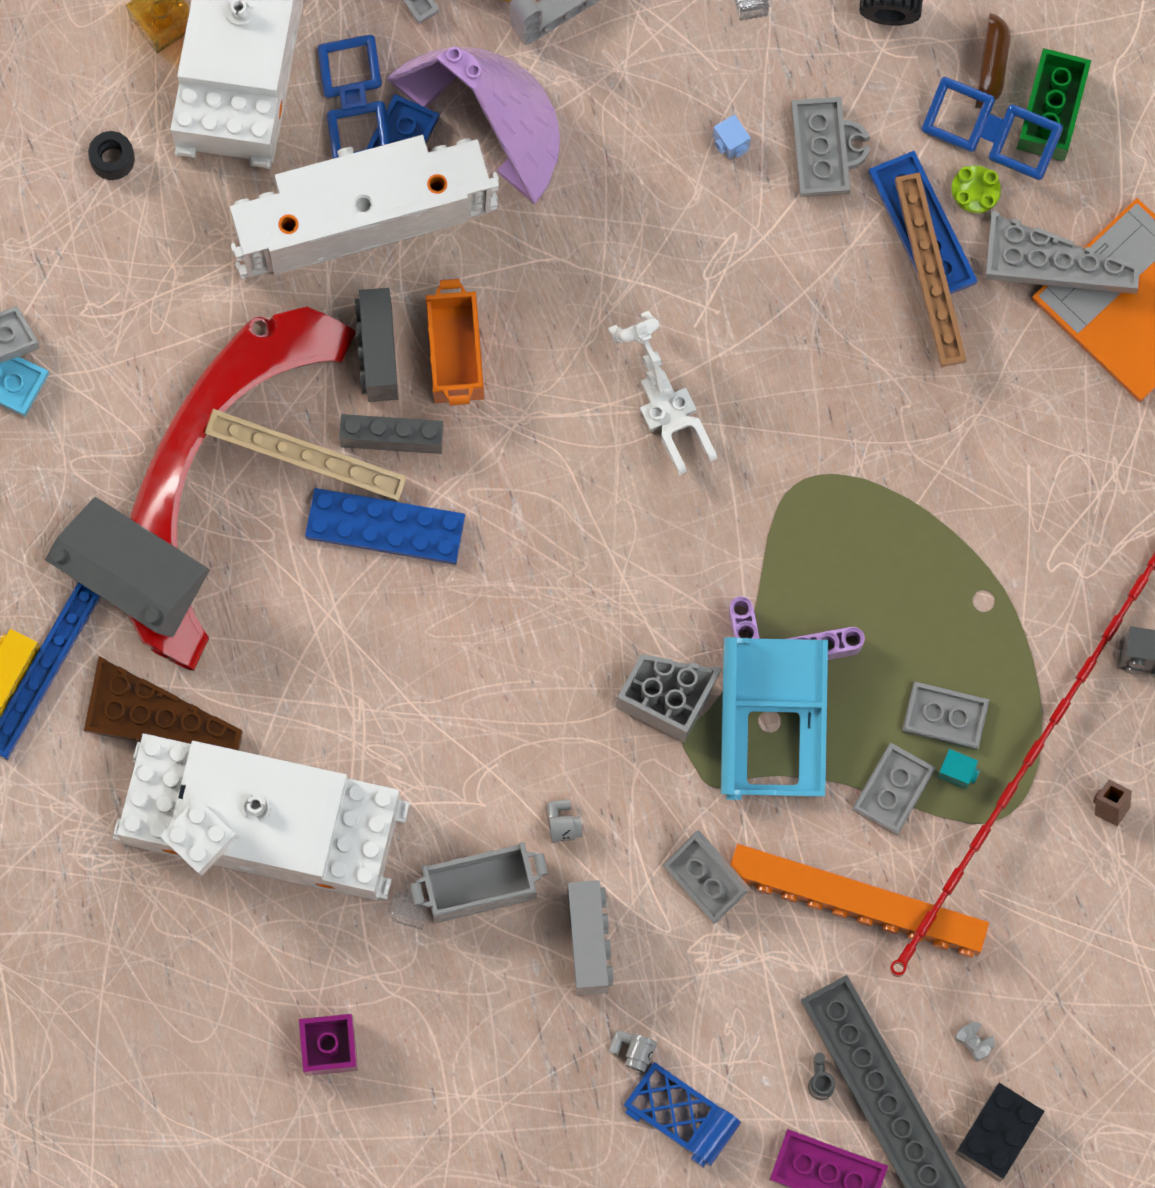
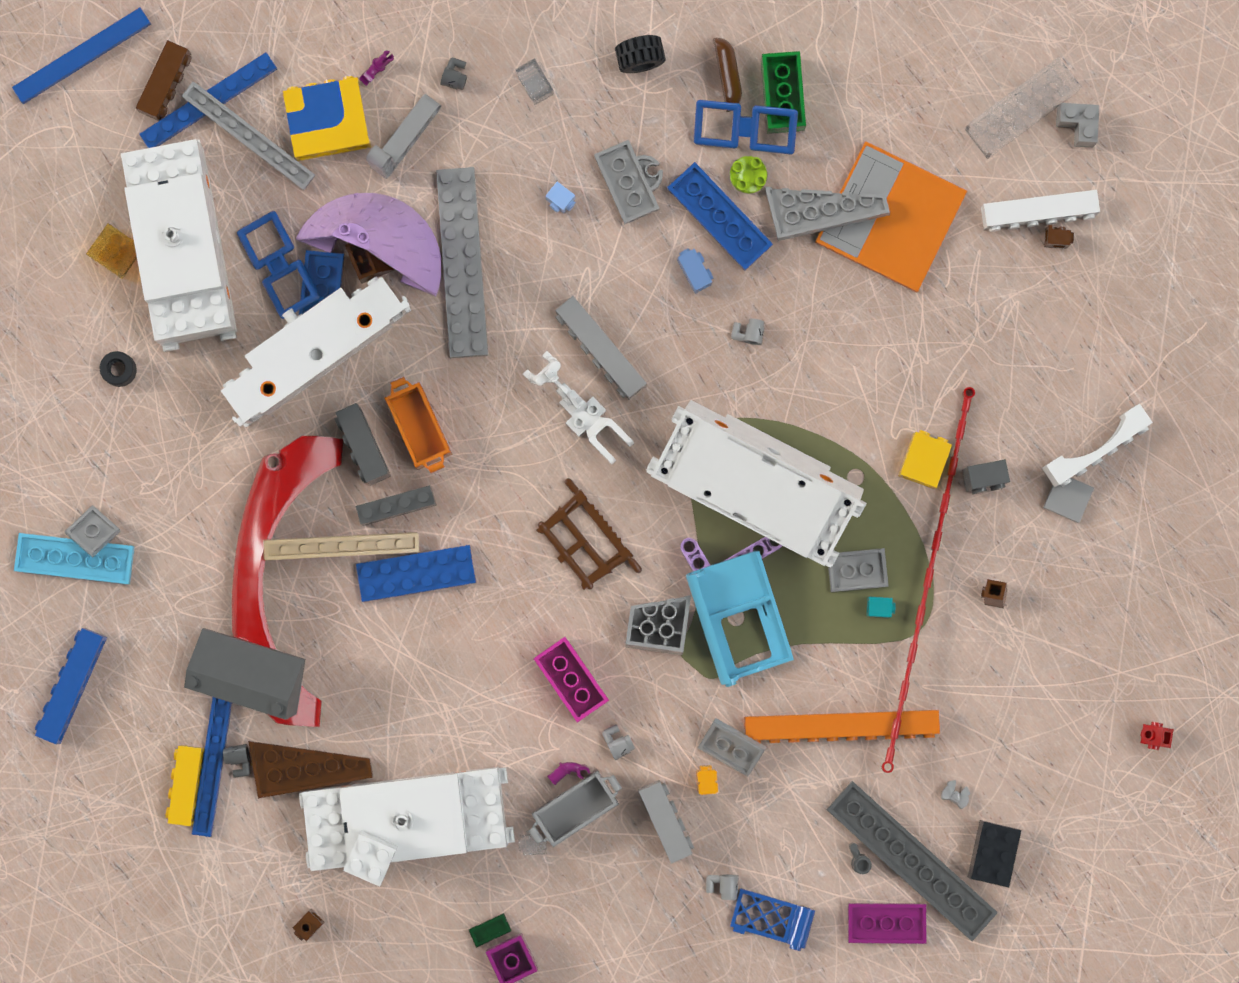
camera: 20 degrees left, 10 degrees up
(79, 669) = (238, 755): none -> dark grey piece
(86, 910) = (308, 925): none -> reddish brown brick
(314, 1000) = (490, 930): none -> dark green tile
(467, 120) = (366, 264): none -> reddish brown slope
(483, 831) = (566, 768): none -> magenta piece
(532, 720) = (571, 679): none -> dark pink brick
(581, 175) = (462, 262): none -> light grey plate
(624, 601) = (565, 555): none -> reddish brown piece
(659, 905) = (706, 780): none -> light orange brick
(716, 332) = (600, 347): none -> light grey brick
(855, 551) = (758, 482): none -> white piece
(867, 279) = (694, 270): none -> medium blue brick
(893, 789) = (839, 636): light grey tile -> none
(915, 379) = (753, 333): none -> light grey piece
(930, 270) = (737, 249): medium nougat plate -> none
(1079, 607) = (925, 459): none -> yellow brick

